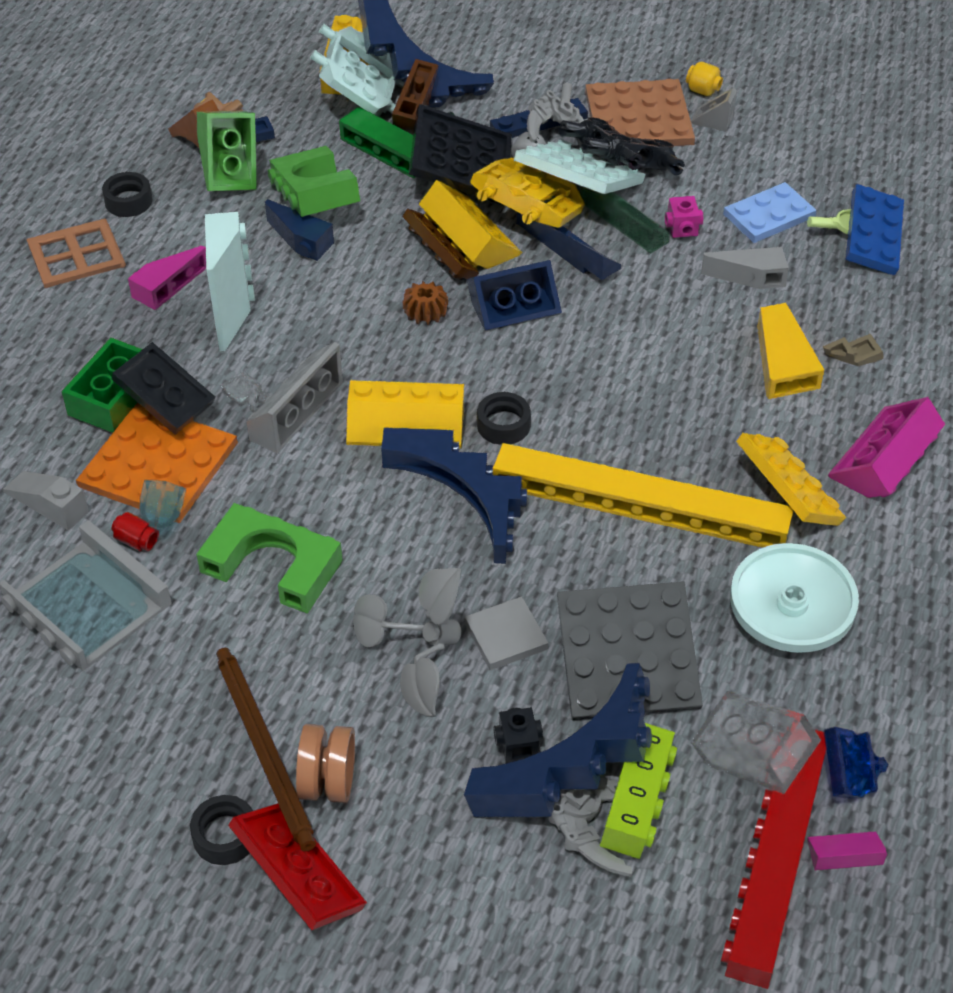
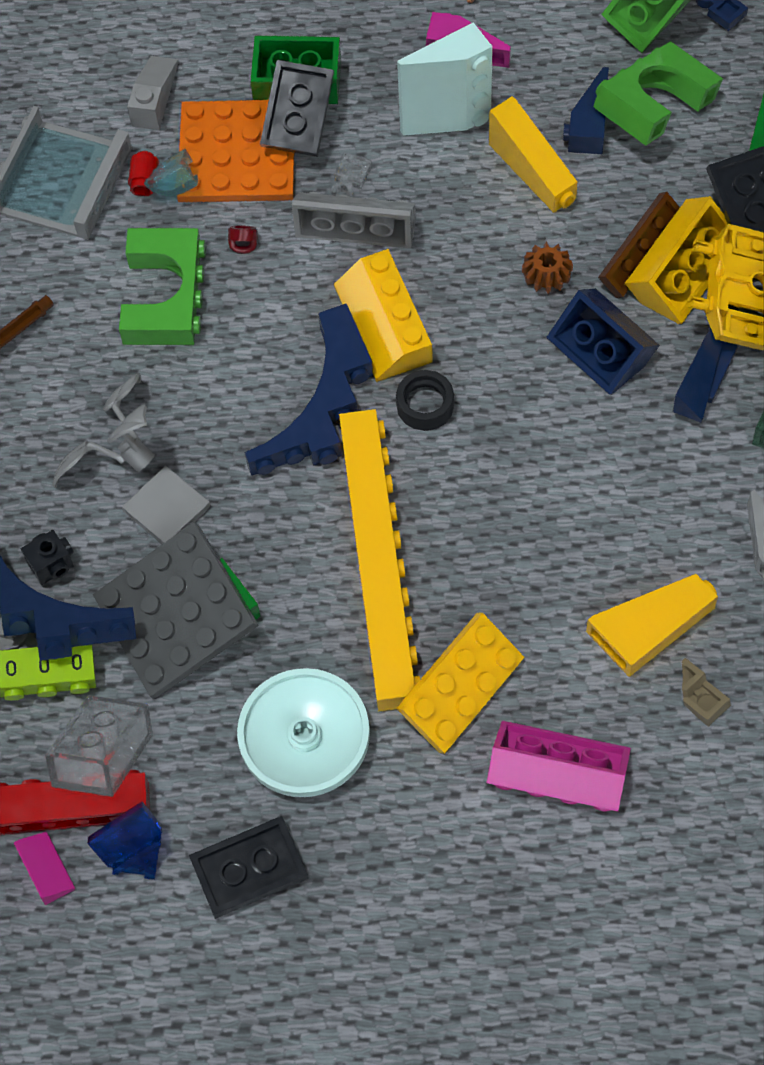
camera: 70 degrees right, 15 degrees up
(255, 481) = (242, 233): none -> dark red tile
(315, 272) = (530, 155): none -> yellow slope
(905, 686) = (248, 867): none -> black plate

